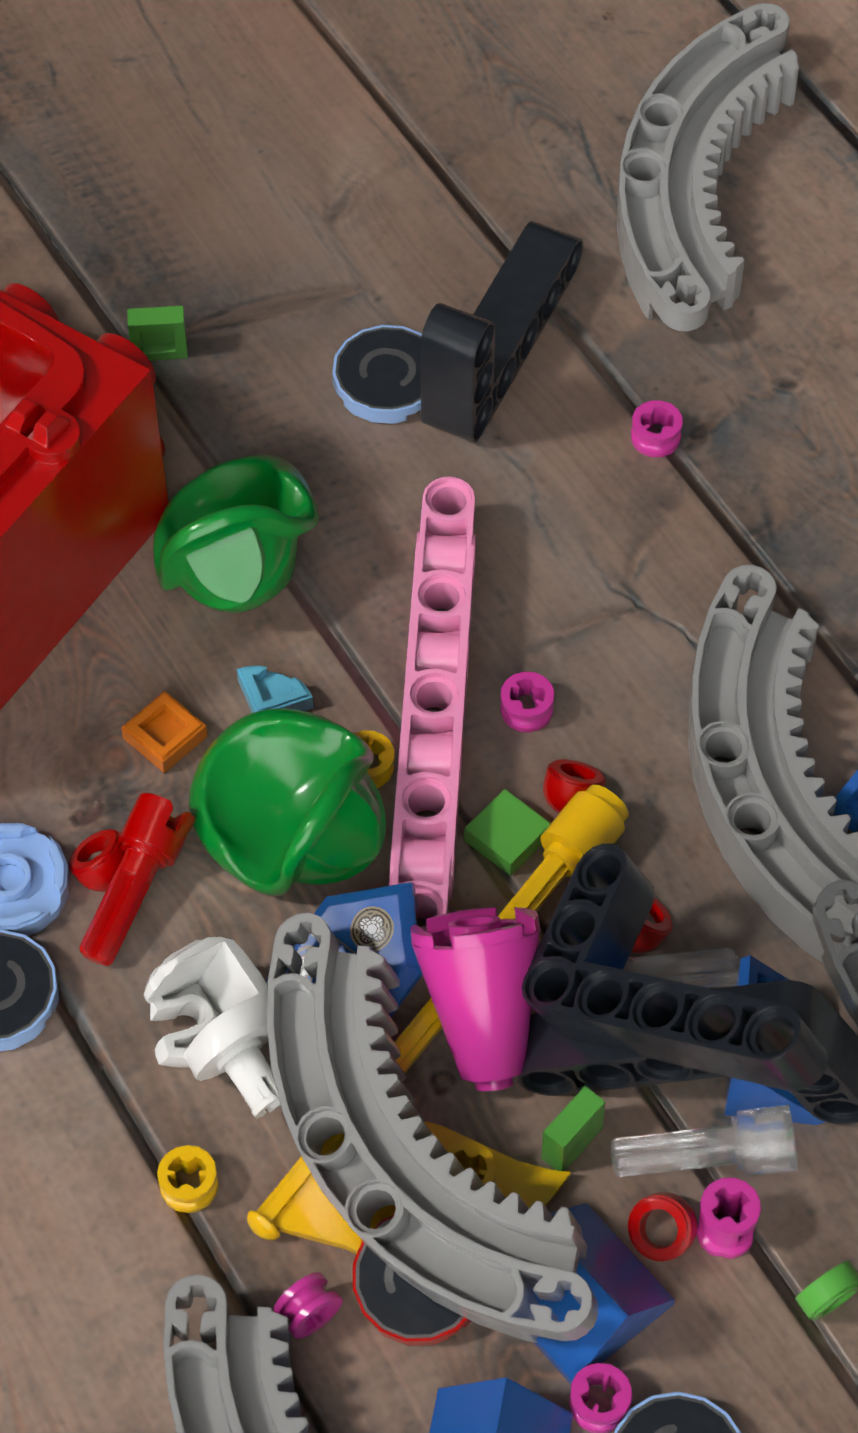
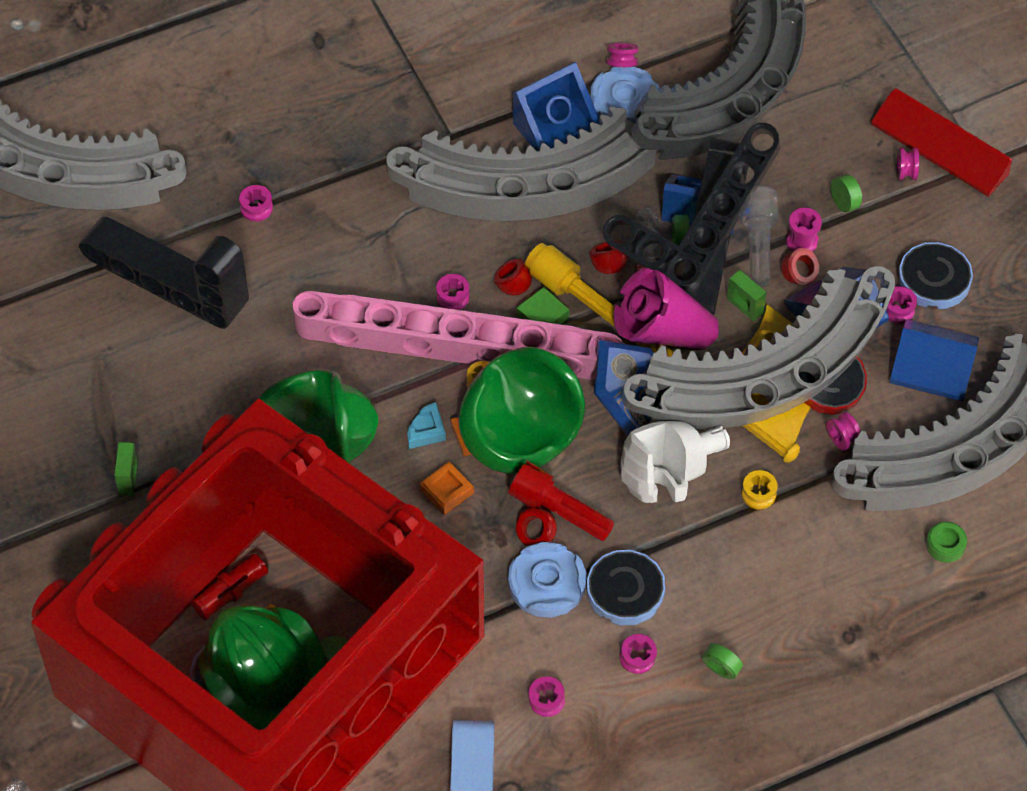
camera: 85 degrees left, 0 degrees up
(380, 373) = (181, 343): black tile -> none

